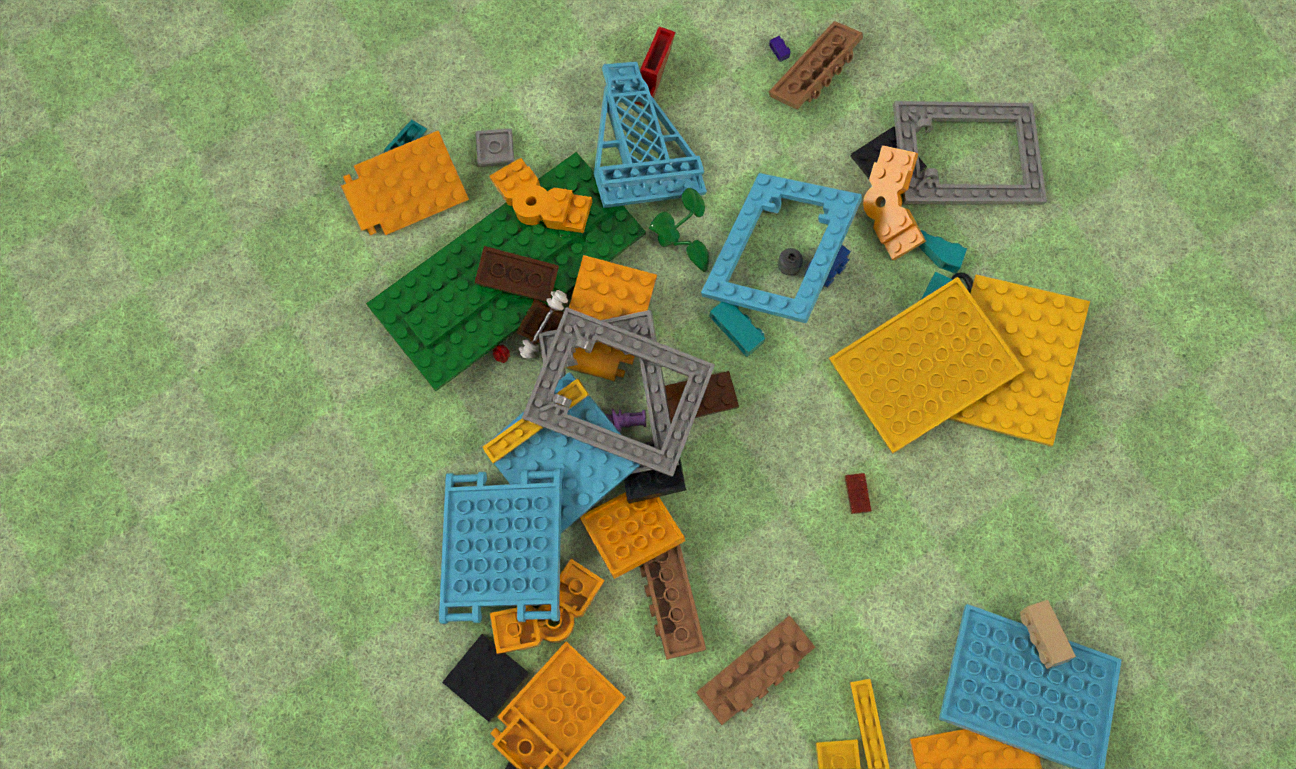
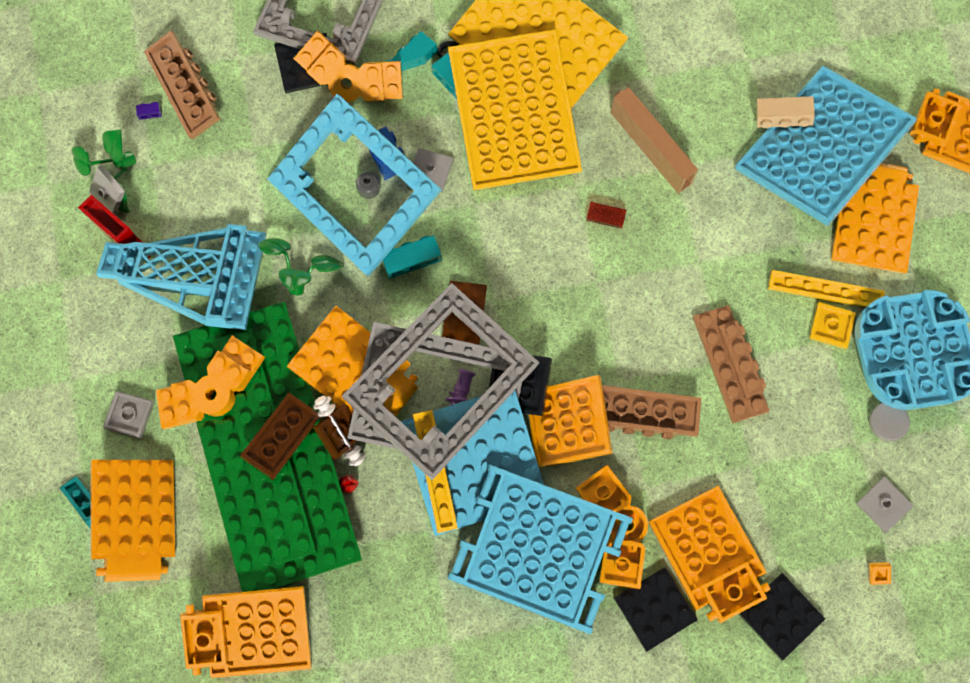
camera: 65 degrees left, 0 degrees up
(337, 319) = (247, 633): none -> light orange plate
(686, 45) = (106, 189): none -> light grey plate
(720, 44) = (113, 145): none -> green plant
(832, 313) = (434, 166): none -> light grey plate
(954, 510) = (653, 140): none -> medium nougat brick

